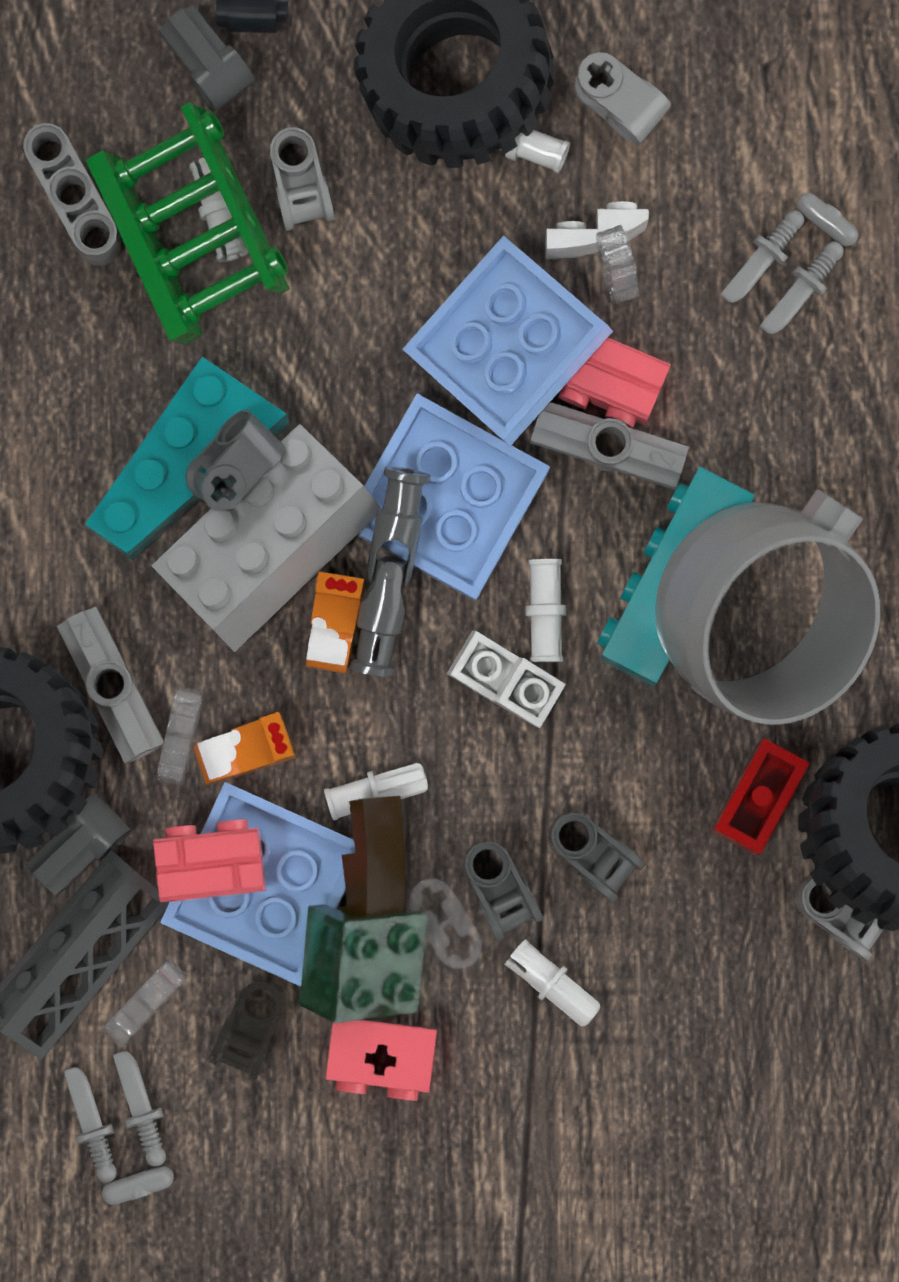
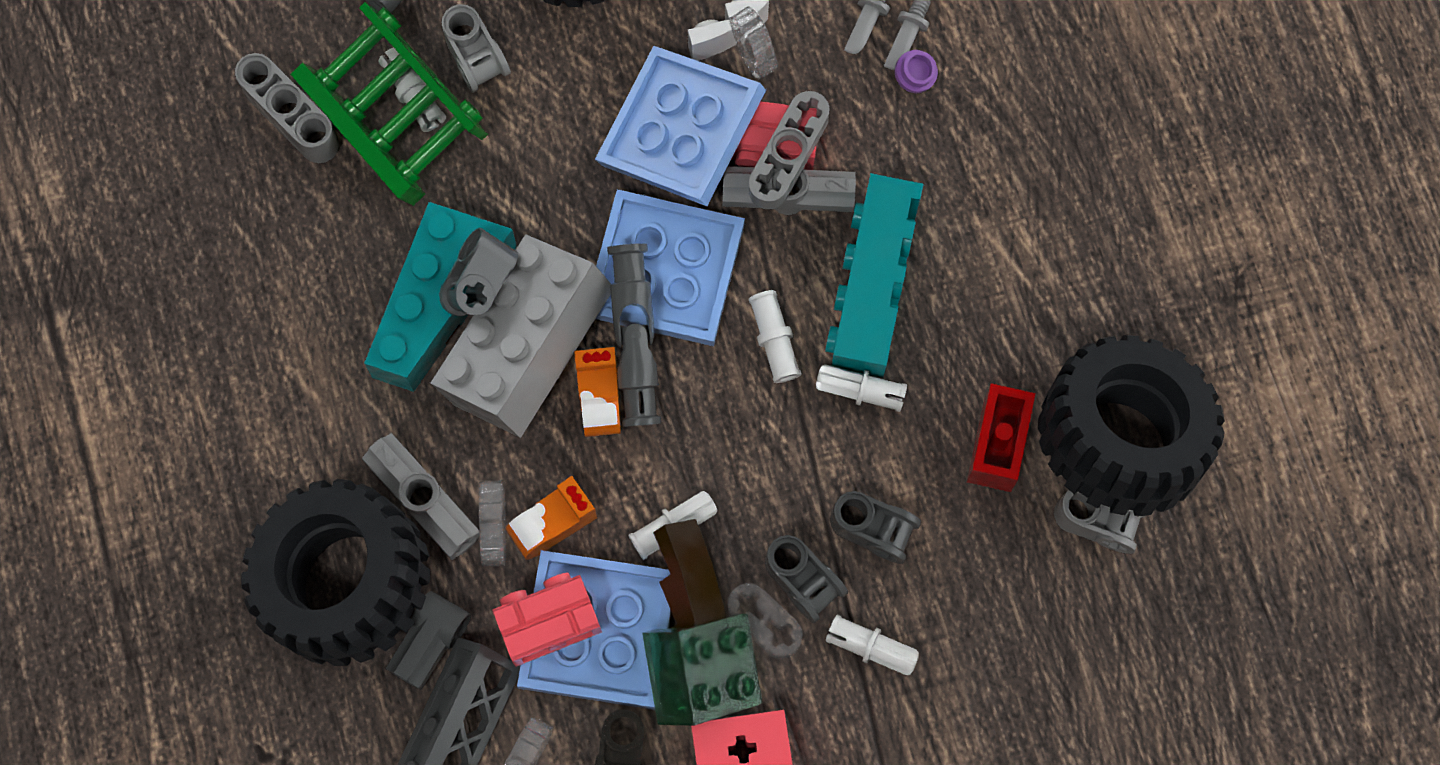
camera: 15 degrees left, 10 degrees down
(506, 679) = (757, 403): white slope -> none
(624, 694) = (861, 387): none -> white axle
(655, 388) = (814, 129): none -> light grey beam
(794, 343) = (916, 71): none -> medium lavender plate
(831, 650) = (1027, 271): light grey cylinder -> none

